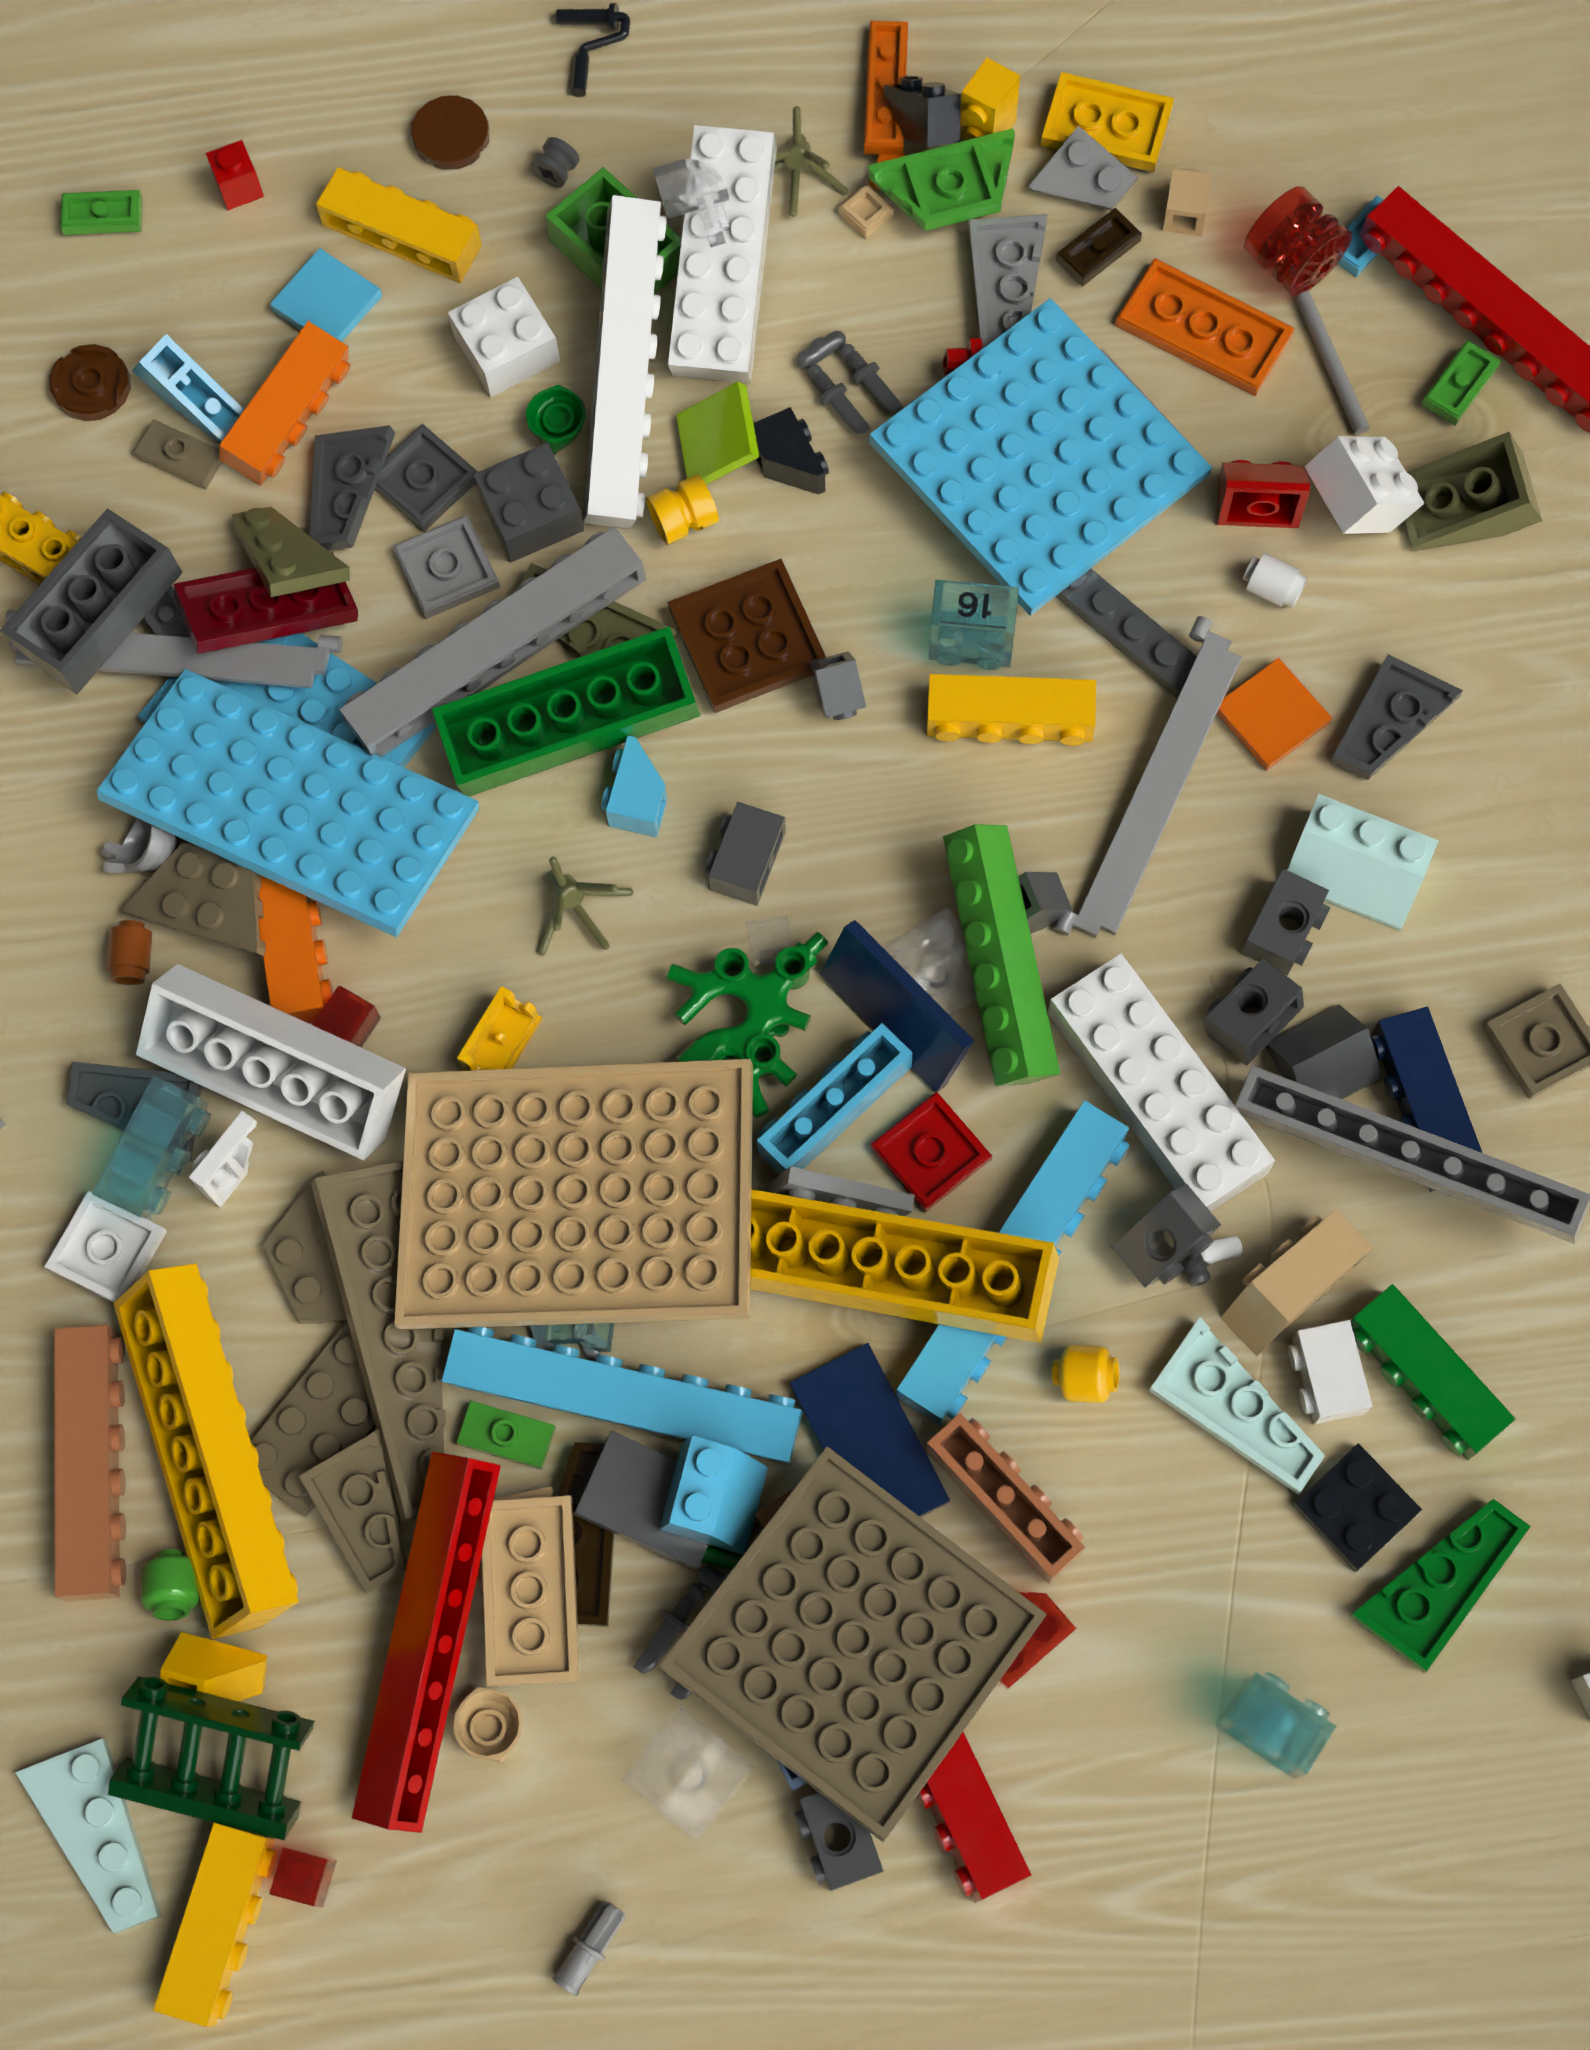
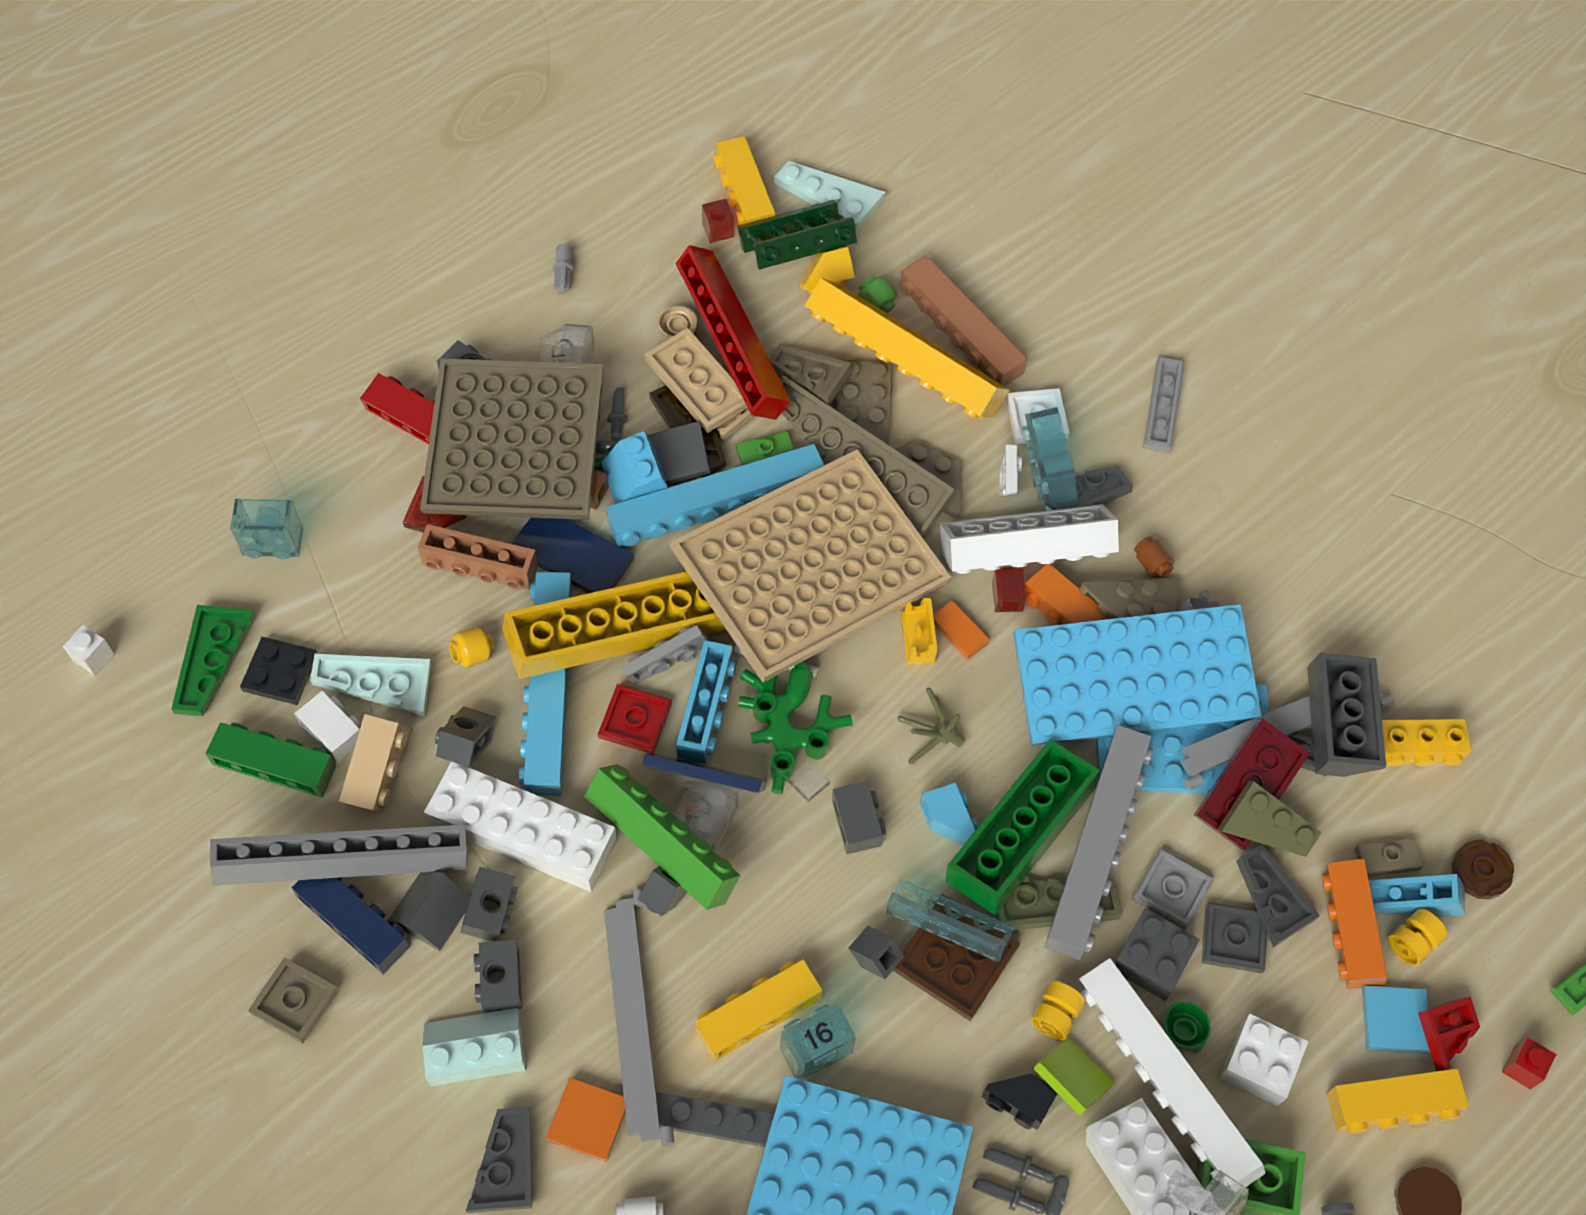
camera: 140 degrees right, 10 degrees down
(218, 351) = (1417, 937): none -> yellow wheel
(284, 252) = (1448, 1029): none -> red wing
(444, 1015) = (960, 630): none -> orange tile
(742, 655) = (948, 926): none -> clear light blue fence
(1220, 1250) = (430, 760): arm -> none

